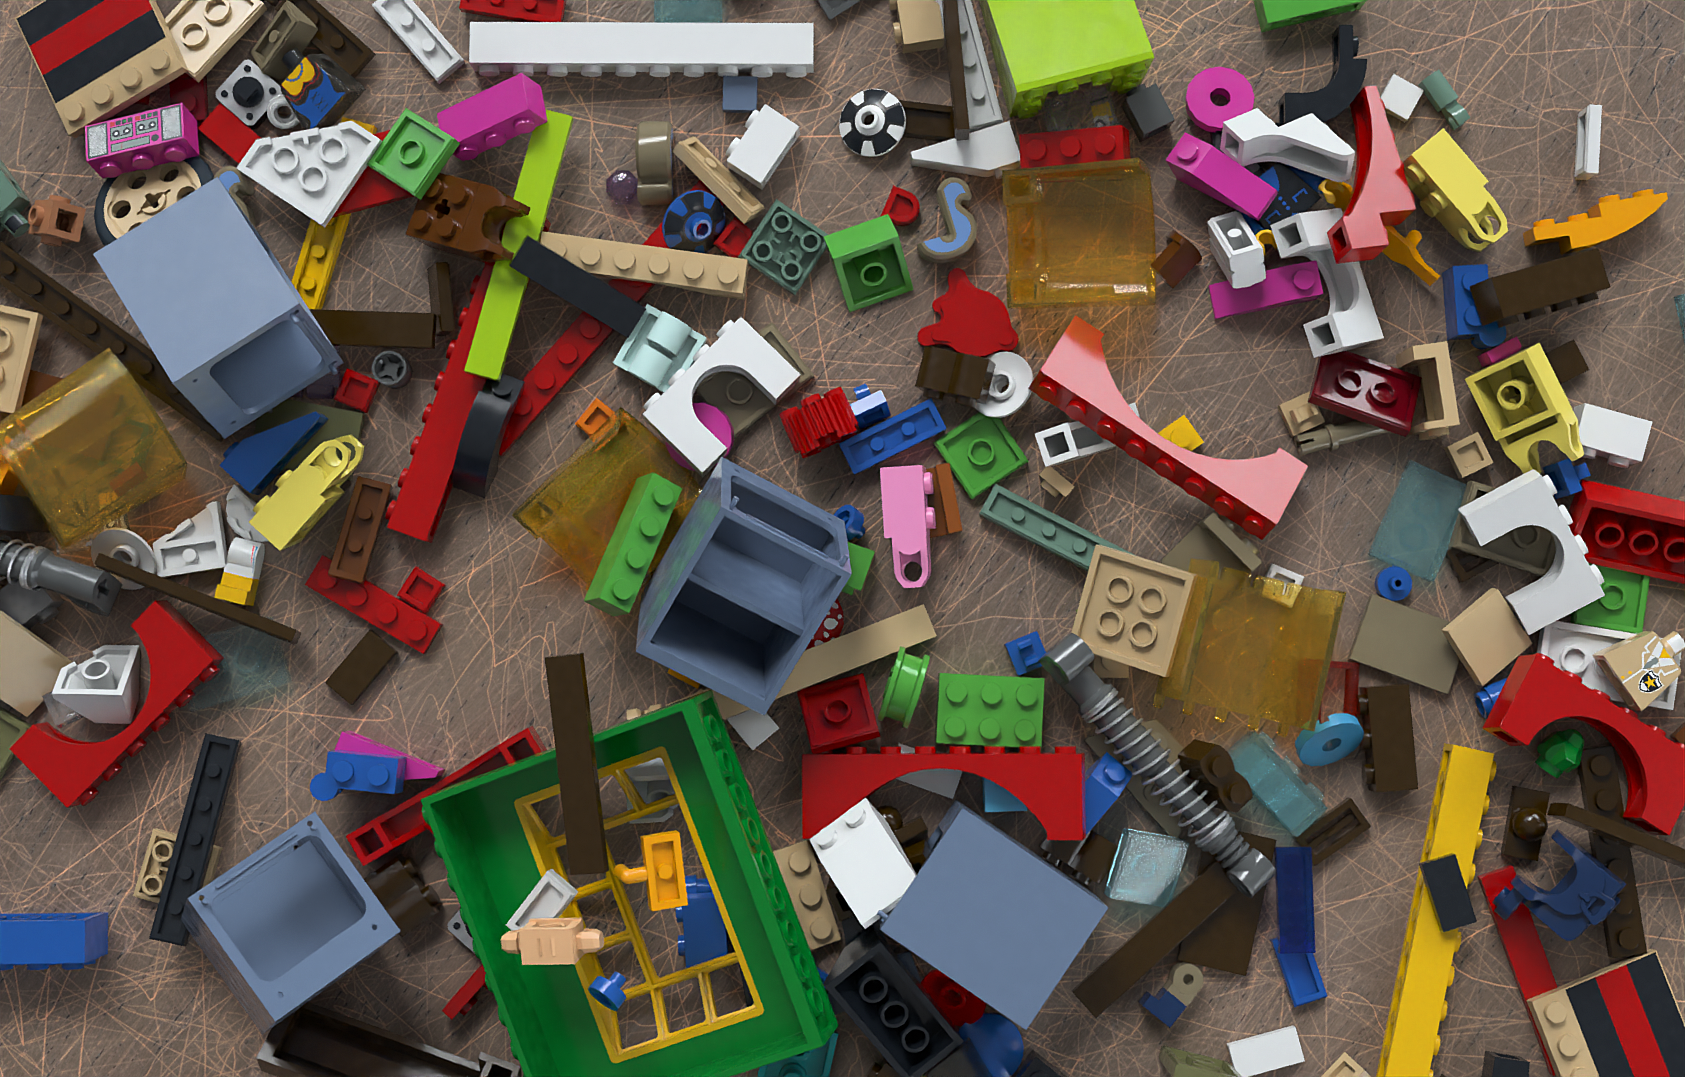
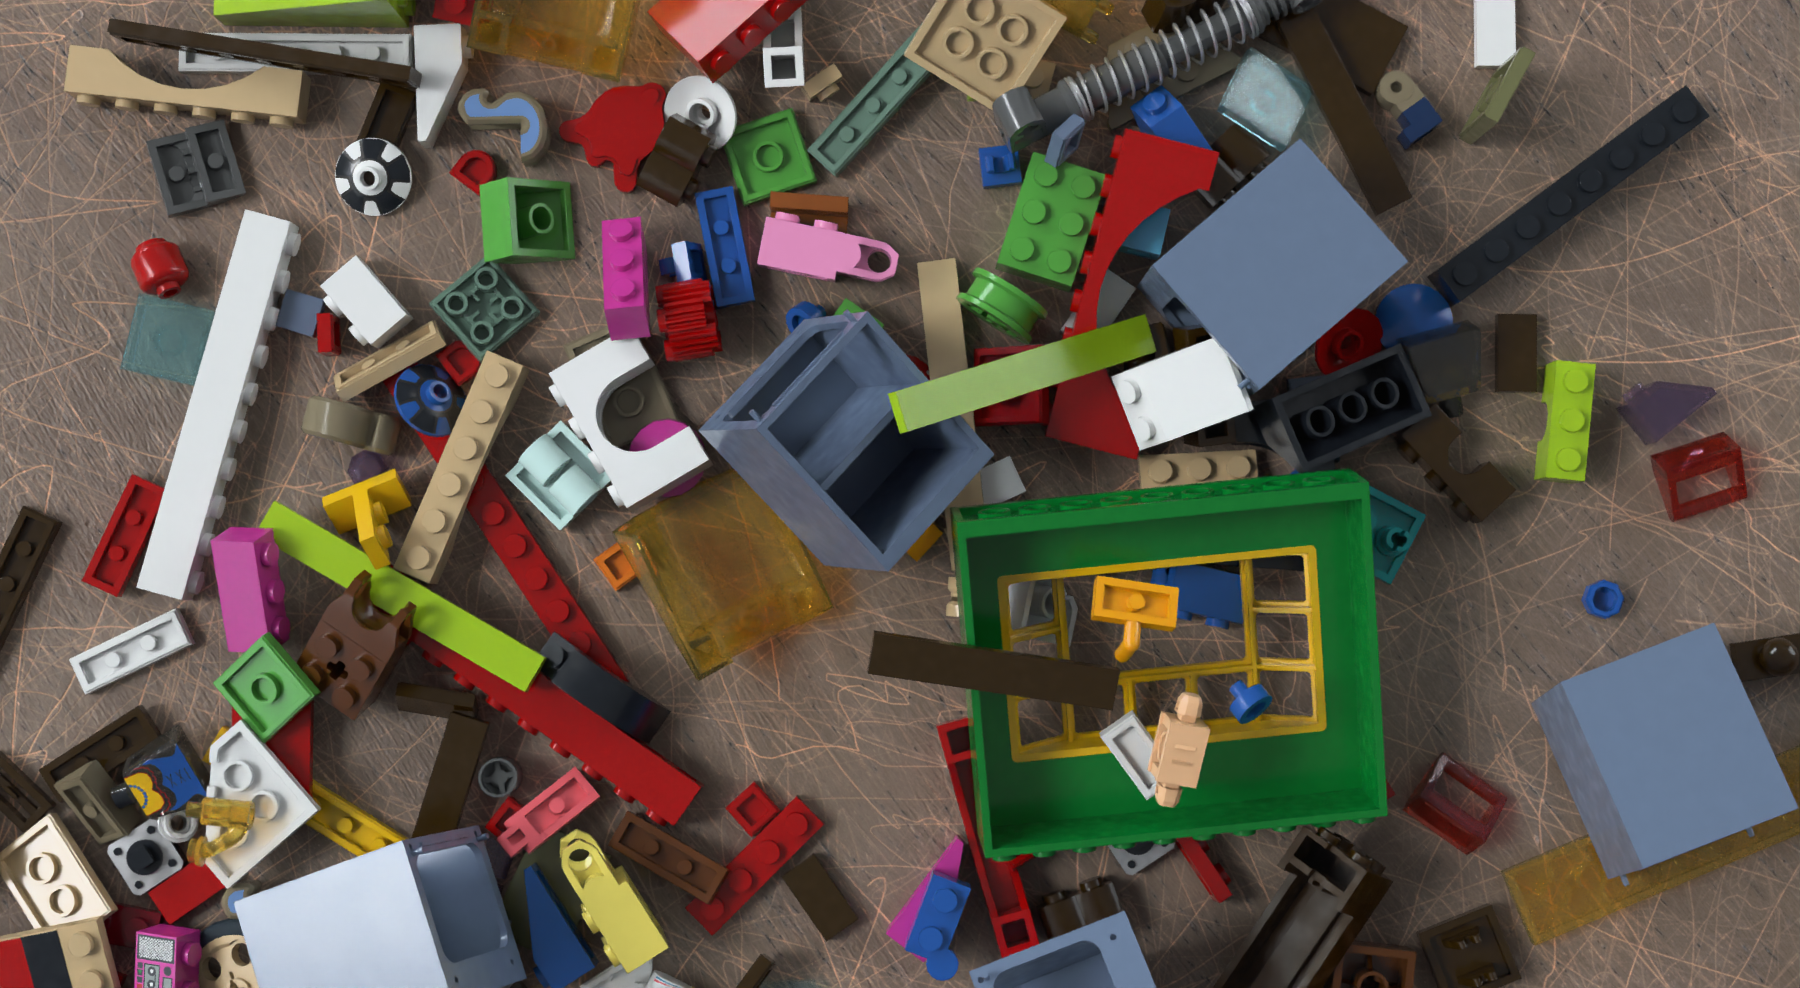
camera: 80 degrees left, 0 degrees up
(297, 146) = (219, 812): none -> clear yellow plant
(370, 418) = (547, 813): none -> coral hinge
(577, 286) = (465, 544): black tile -> none
(587, 195) = (367, 509): none -> yellow bracket
(633, 544) = (767, 557): bright green brick -> none
(727, 122) = (328, 334): none -> red tile
(839, 359) = (625, 278): none -> dark pink brick
(841, 720) = (1020, 373): none -> lime tile
(1059, 703) = (1065, 140): none -> sand blue tile

